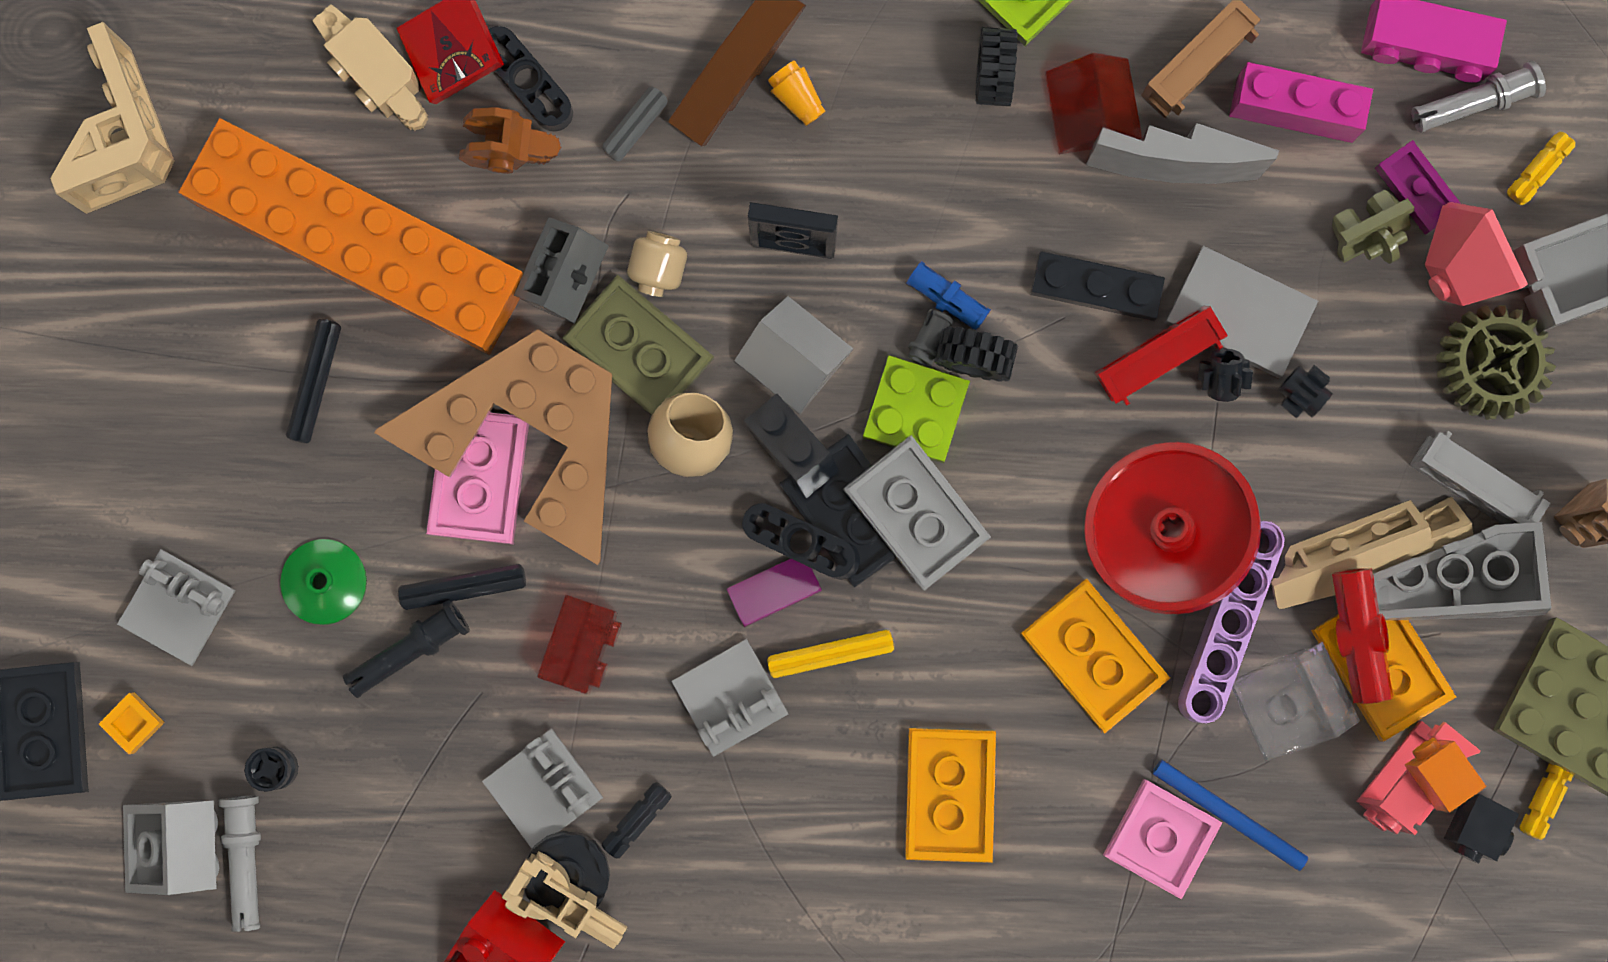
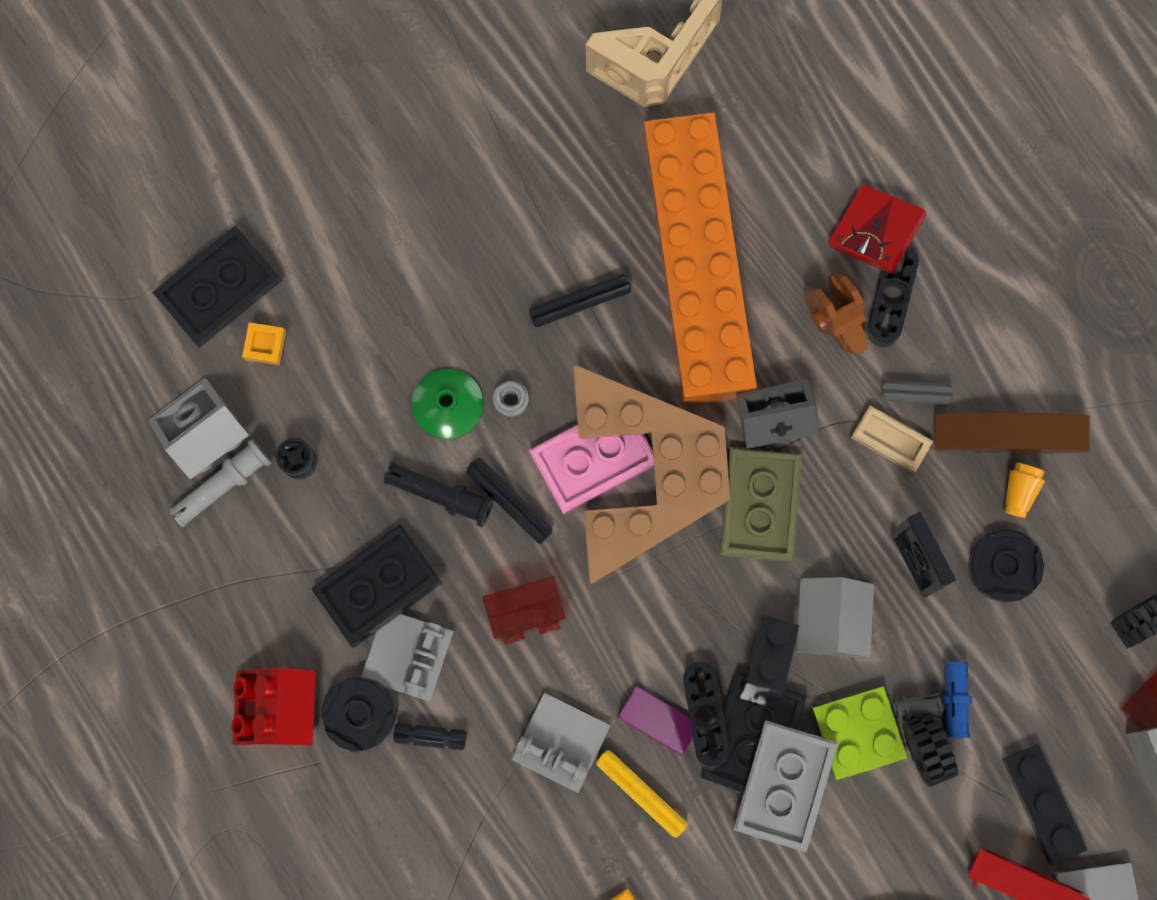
camera: 60 degrees right, 5 degrees down
(175, 606) = (362, 317): light grey hinge -> none
(352, 508) = (503, 390): none -> light grey plate
(373, 64) = (825, 188): tan hinge -> none
(454, 774) = (376, 586): none -> black tile
(576, 912) = (338, 738): tan piece -> none
(657, 263) = (830, 476): tan head -> none
(663, 180) = (891, 439): none -> tan tile
(690, 434) = (726, 584): tan helmet -> none
(857, 161) = (1006, 566): none -> black tile

